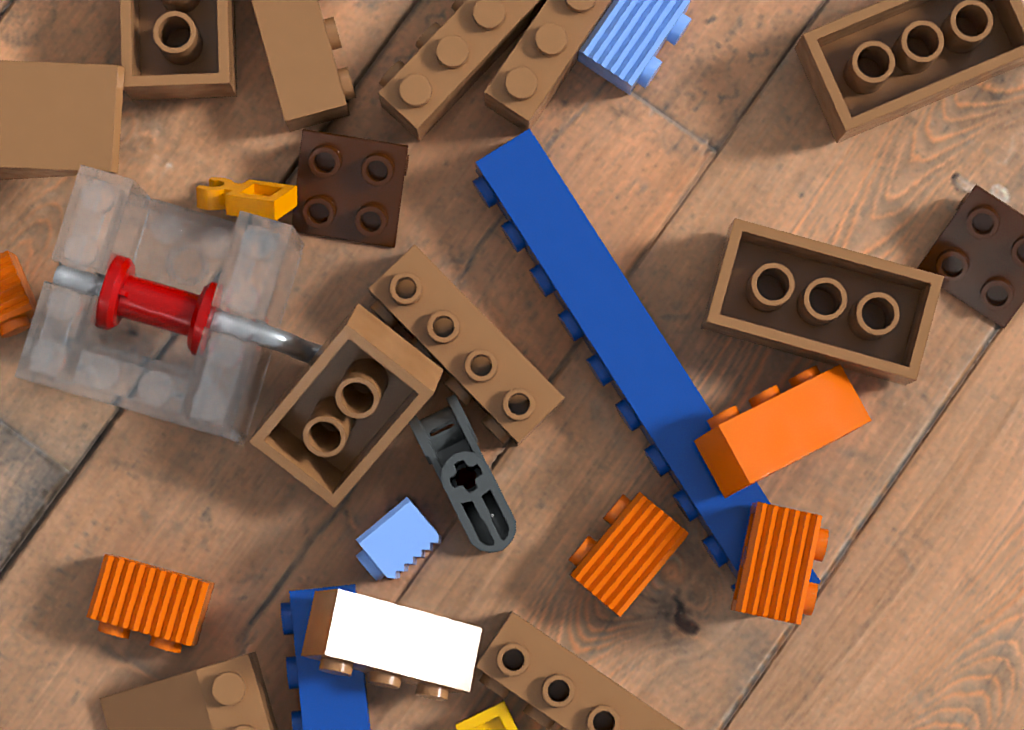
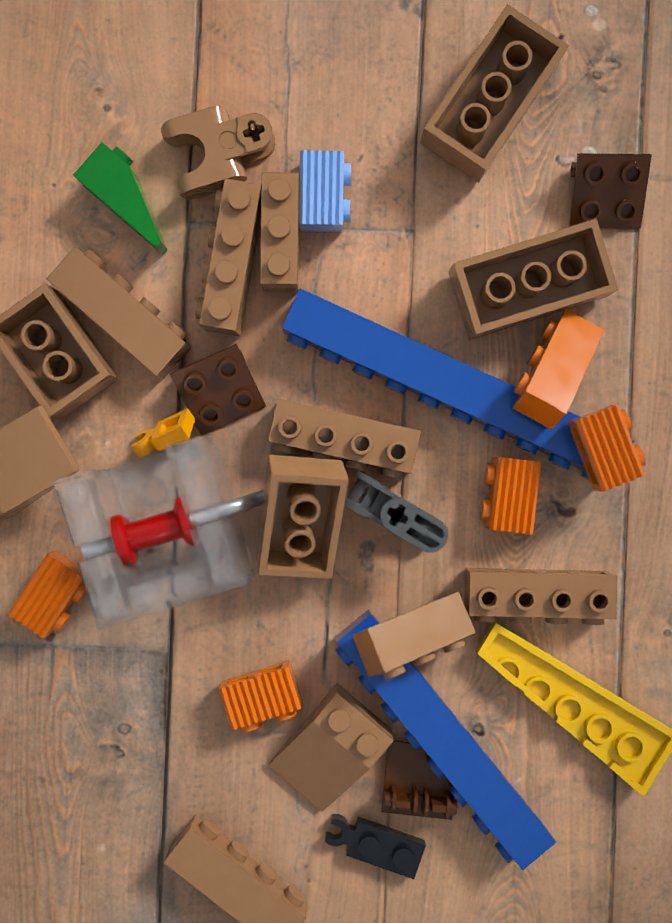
camera: 30 degrees left, 5 degrees up
(396, 541) = (379, 575): light blue brick -> none

